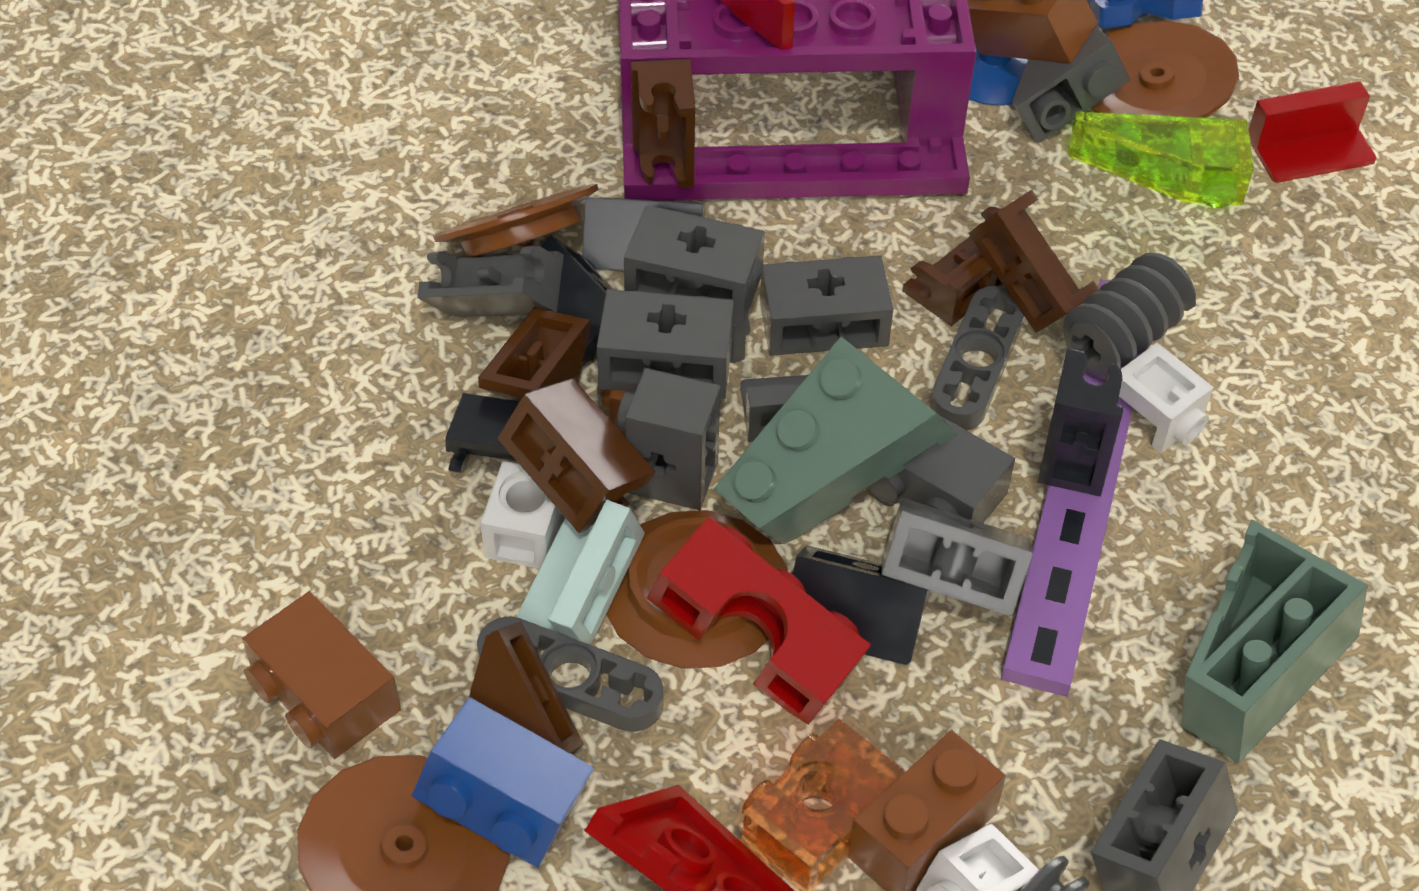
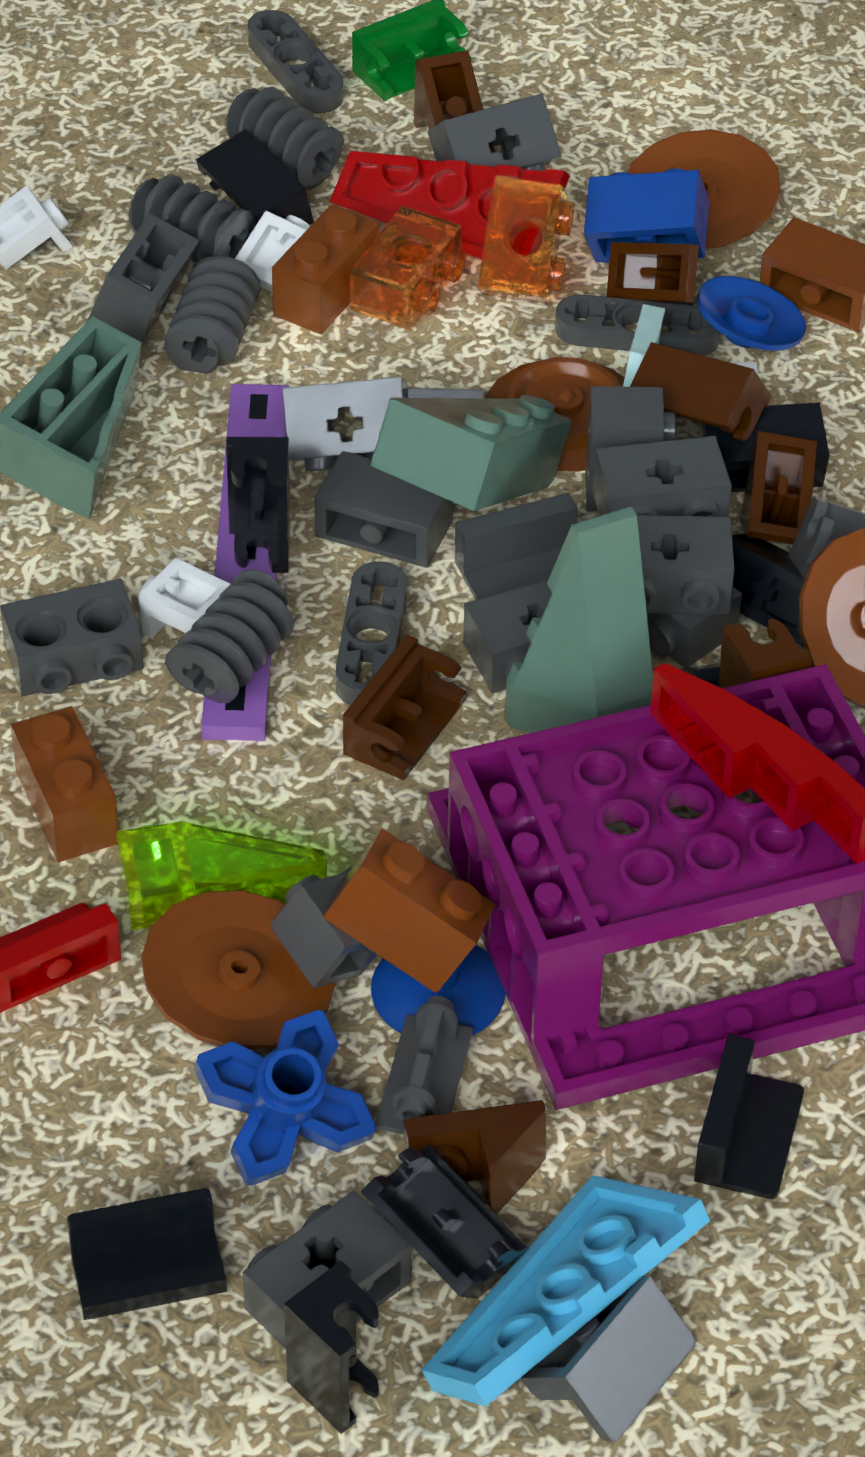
camera: 165 degrees right, 5 degrees down
(425, 616) = (751, 313): none -> blue dish
(673, 763) = (515, 207): none -> clear orange brick
(723, 577) = (535, 353): red arch -> none
(806, 186) = (593, 638): none -> sand green wedge
(1028, 264) = (336, 663): reddish brown hinge -> none
(1079, 780) = (212, 314): none -> dark grey piece
(1279, 393) = (72, 637): none -> dark grey brick
(1293, 246) = (65, 783): none -> dark orange brick

